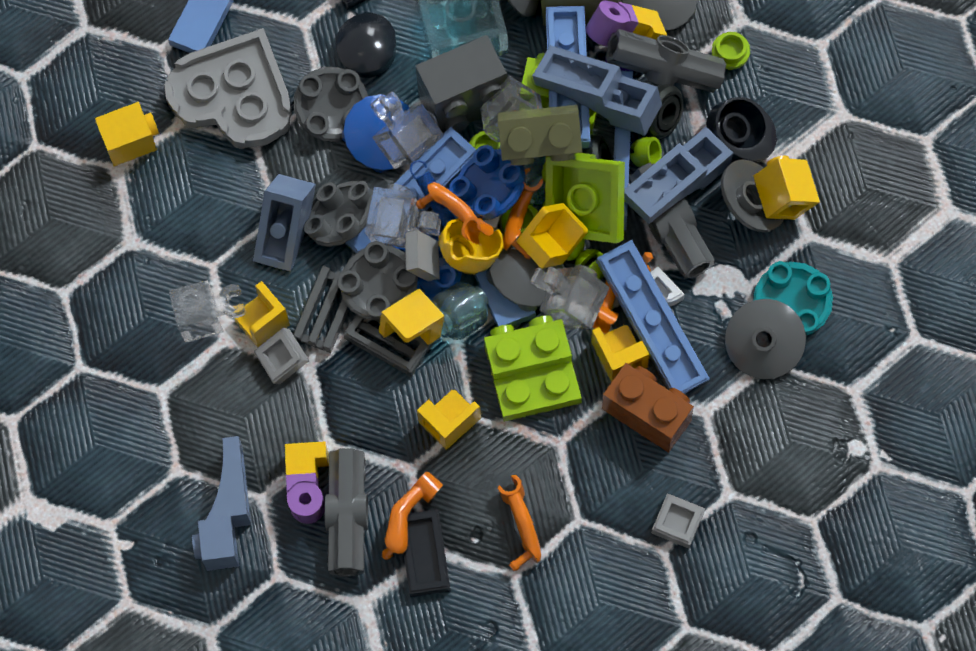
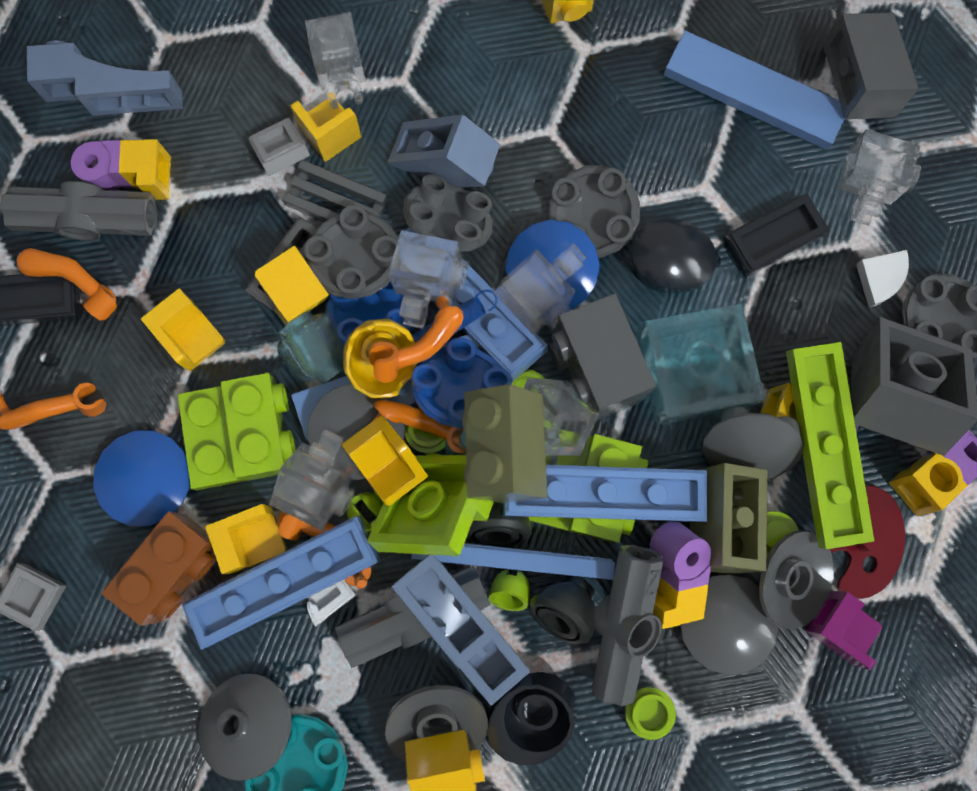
camera: 85 degrees right, 10 degrees up
(233, 88) = (618, 101): light grey plate -> none
(422, 255) = (369, 298): light grey tile -> none
(574, 440) = (141, 478): none -> blue dish
(599, 87) = (577, 530): sand blue slope -> none

